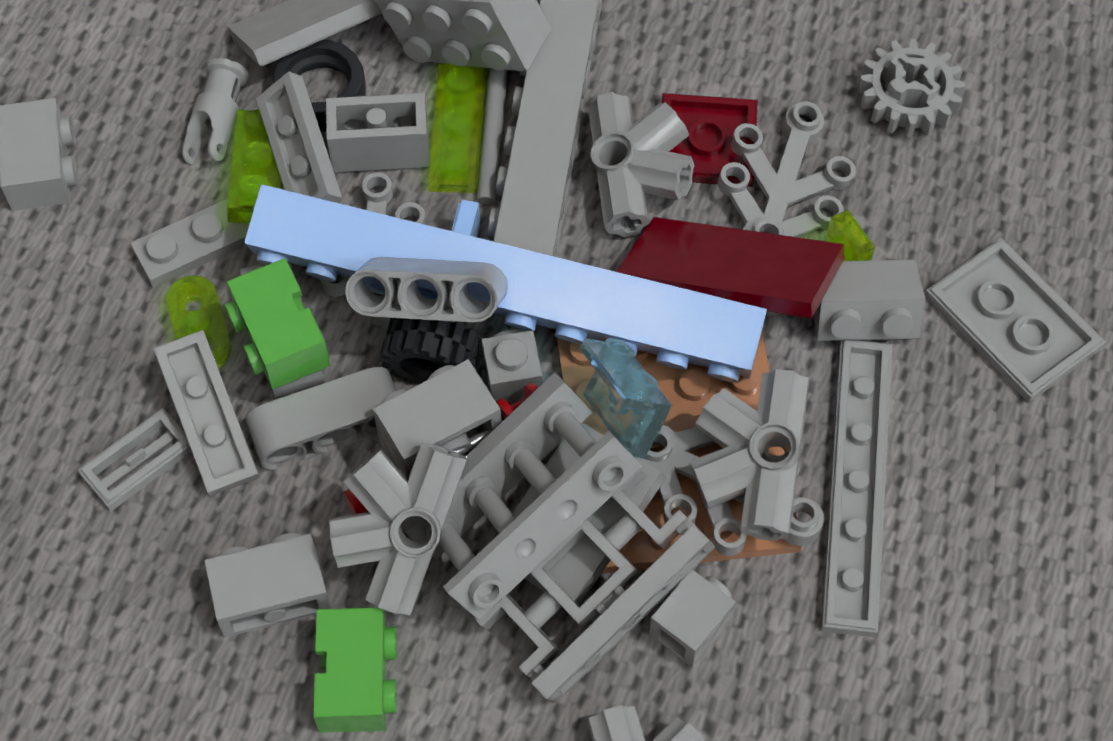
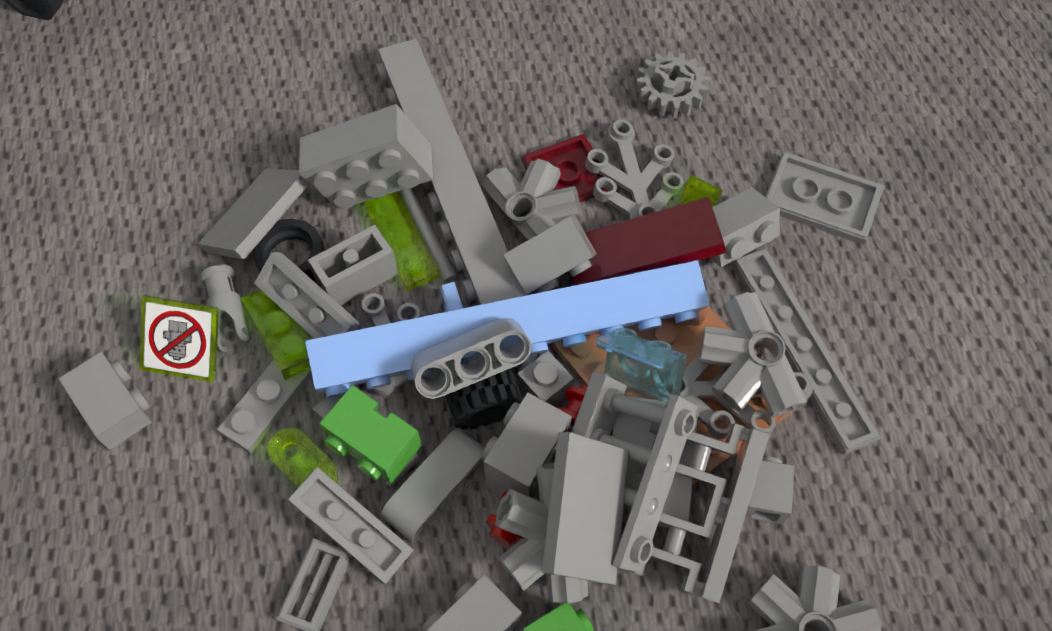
camera: 30 degrees left, 0 degrees up
(144, 123) = (178, 338): none -> piece
(444, 508) = (585, 509): none -> light grey tile
(605, 222) = (551, 254): none -> light grey brick

